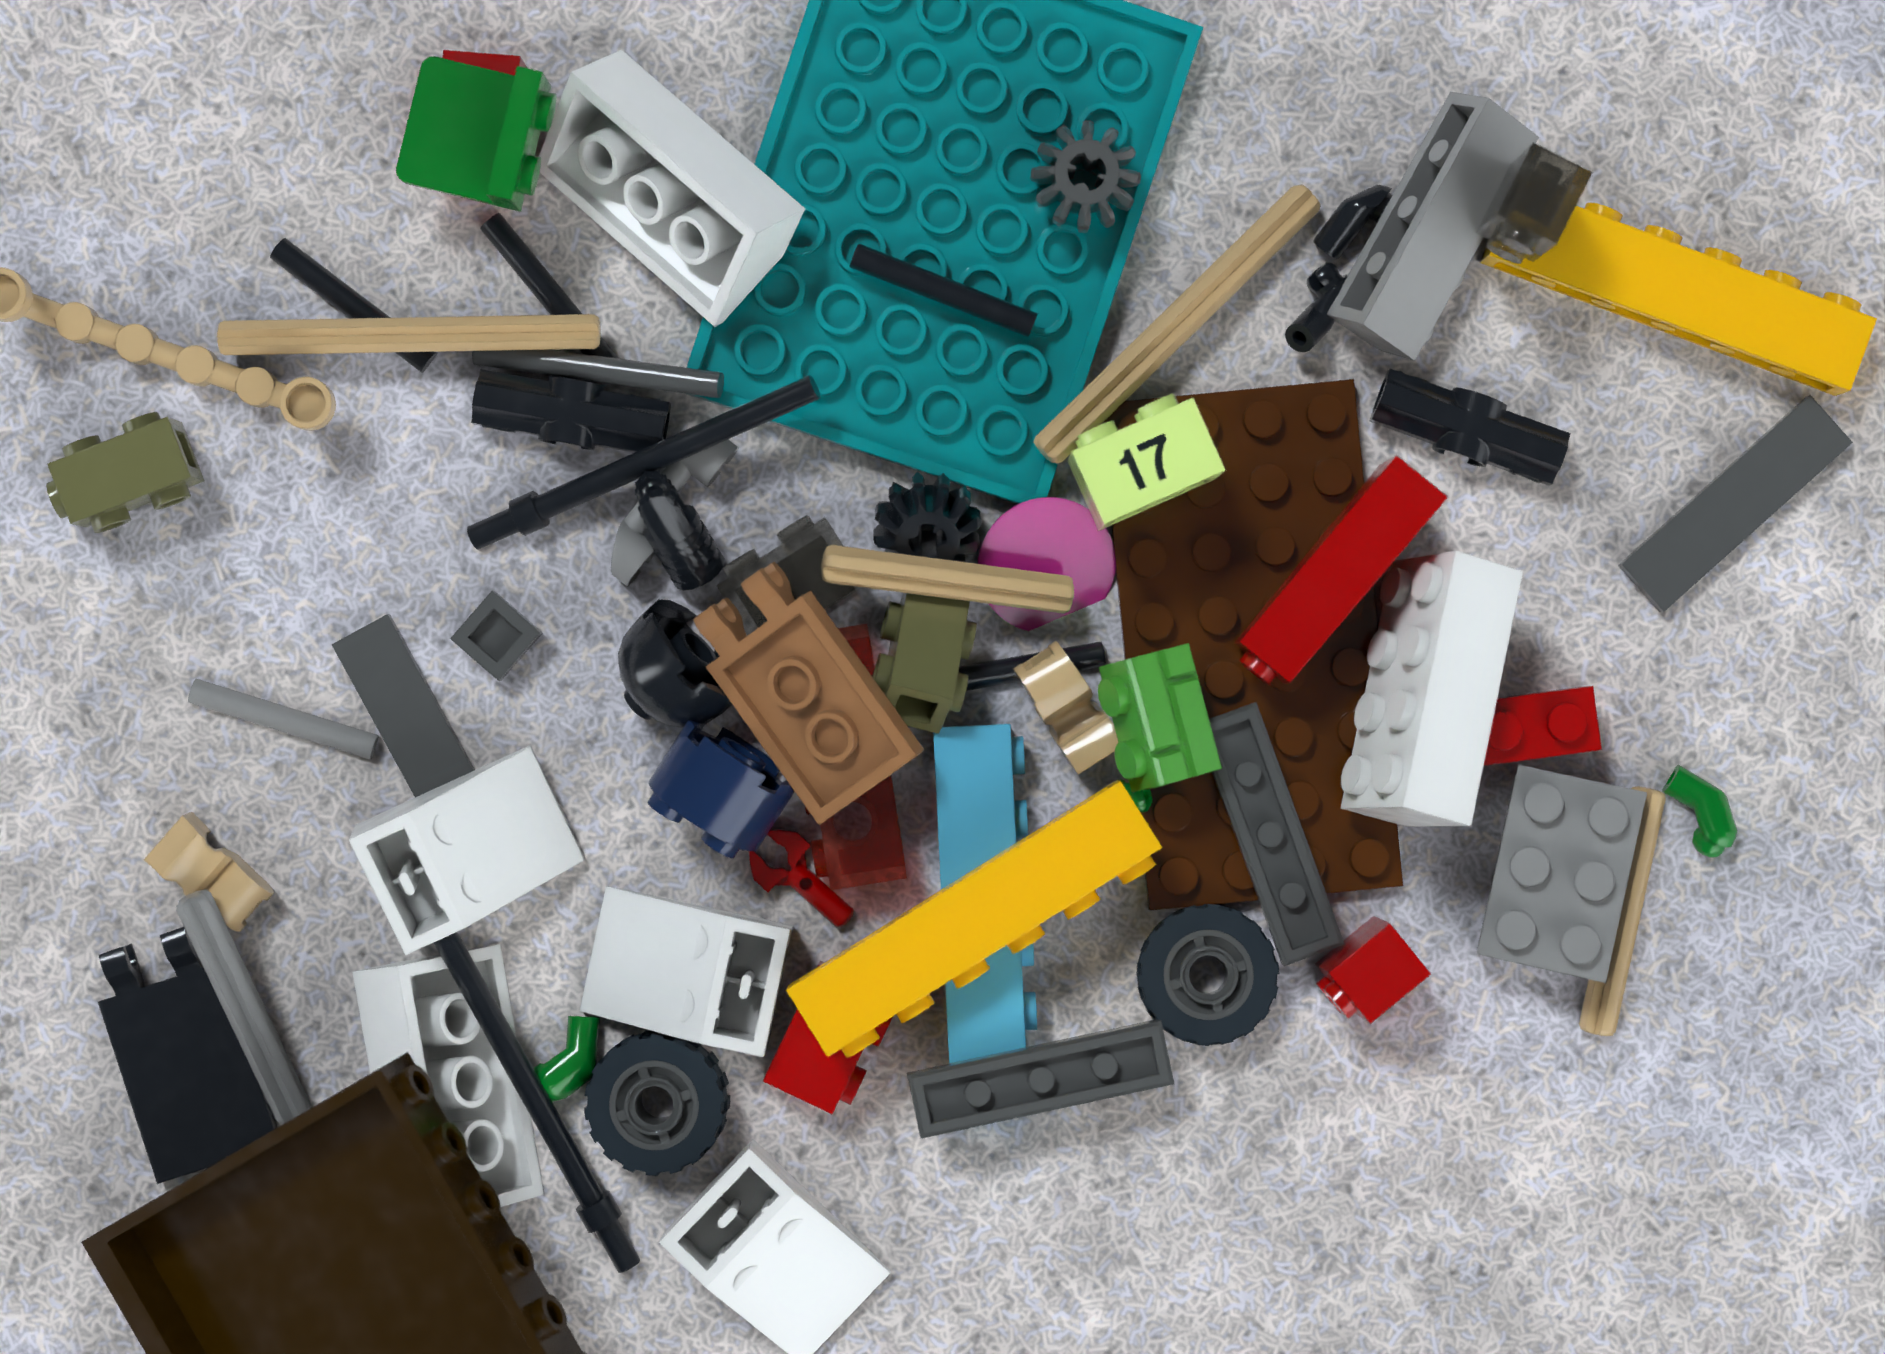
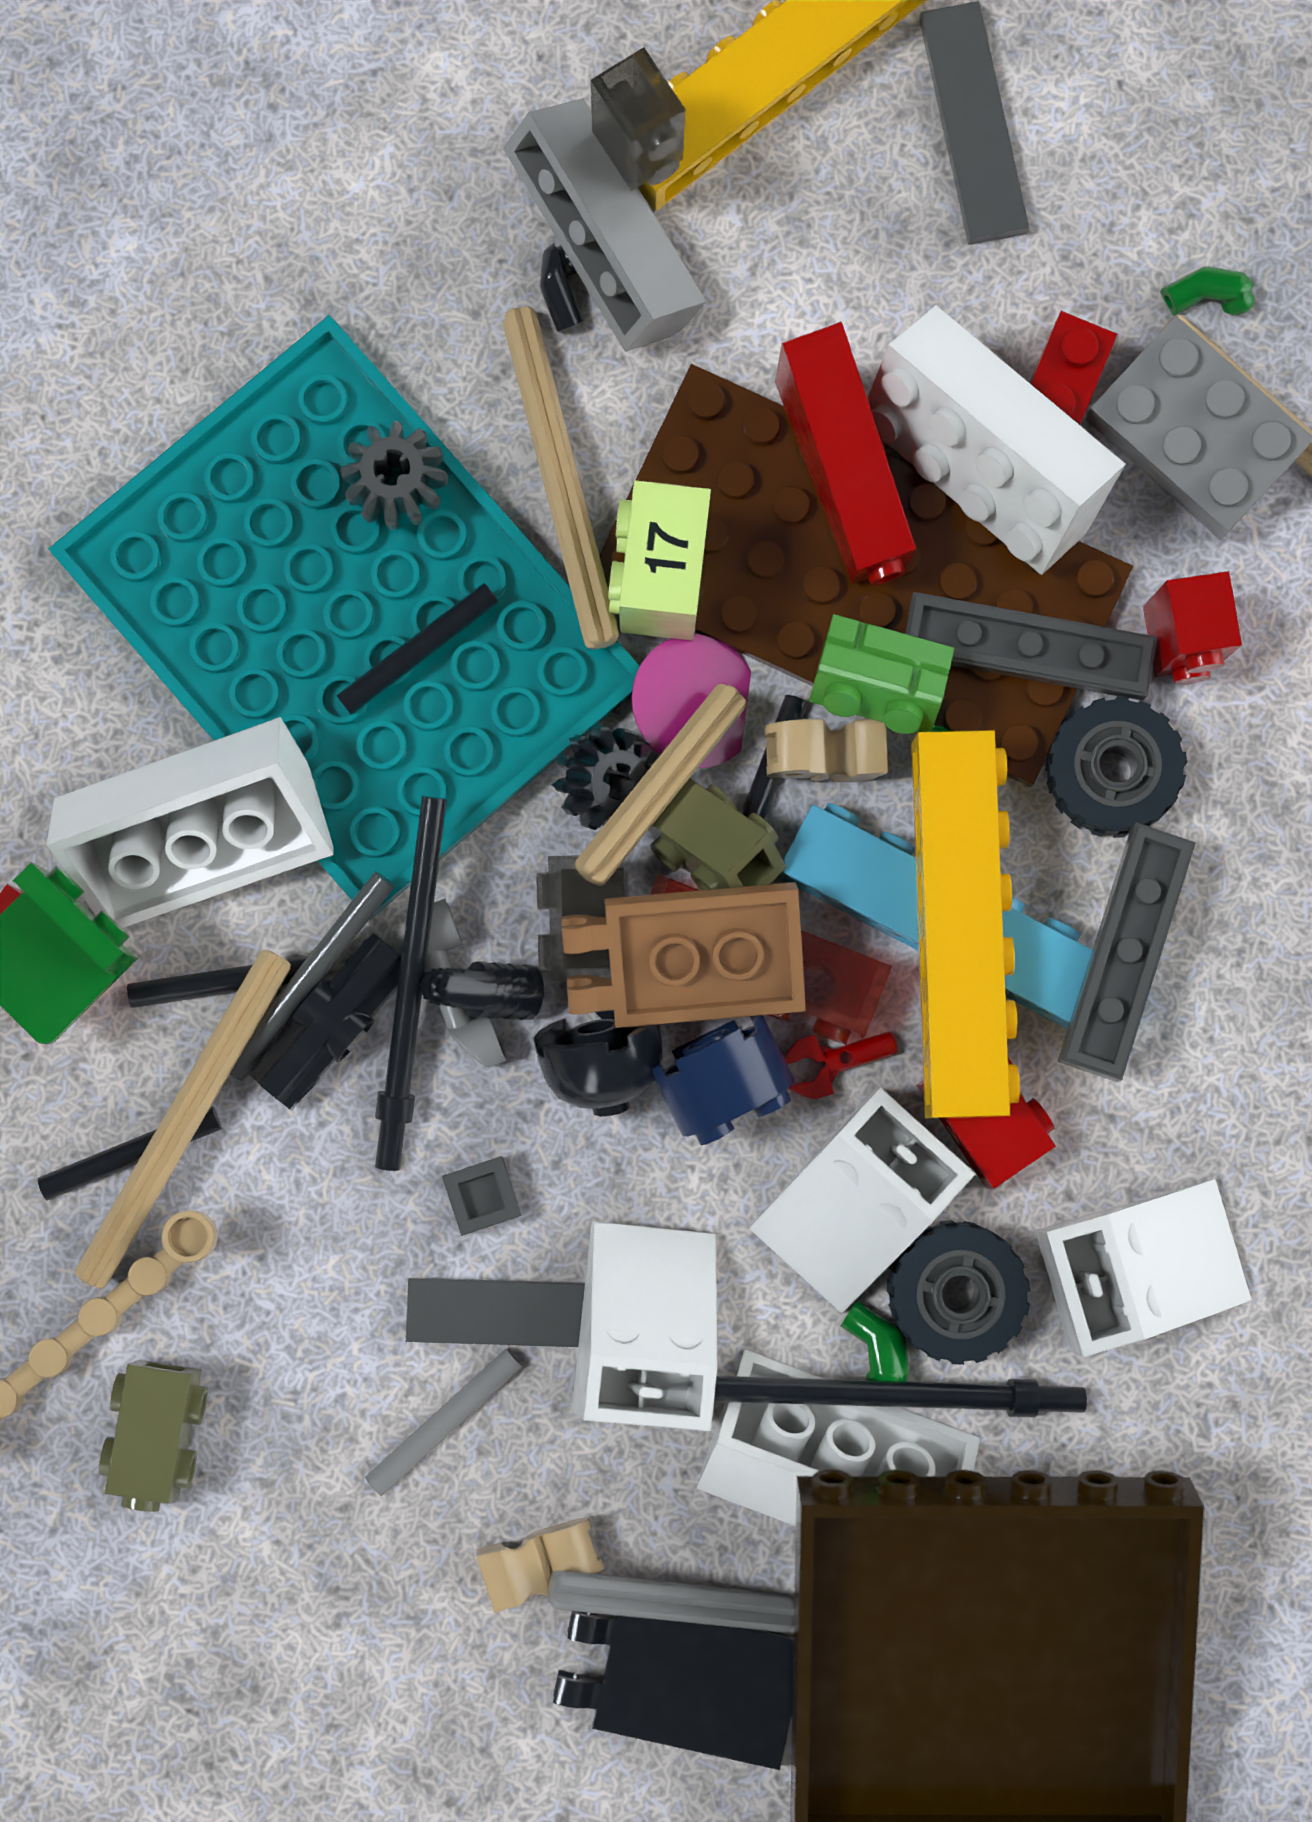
camera: 65 degrees left, 5 degrees down
(1314, 321) = (624, 366): black arm -> none
(1470, 427) = (786, 292): black piece -> none

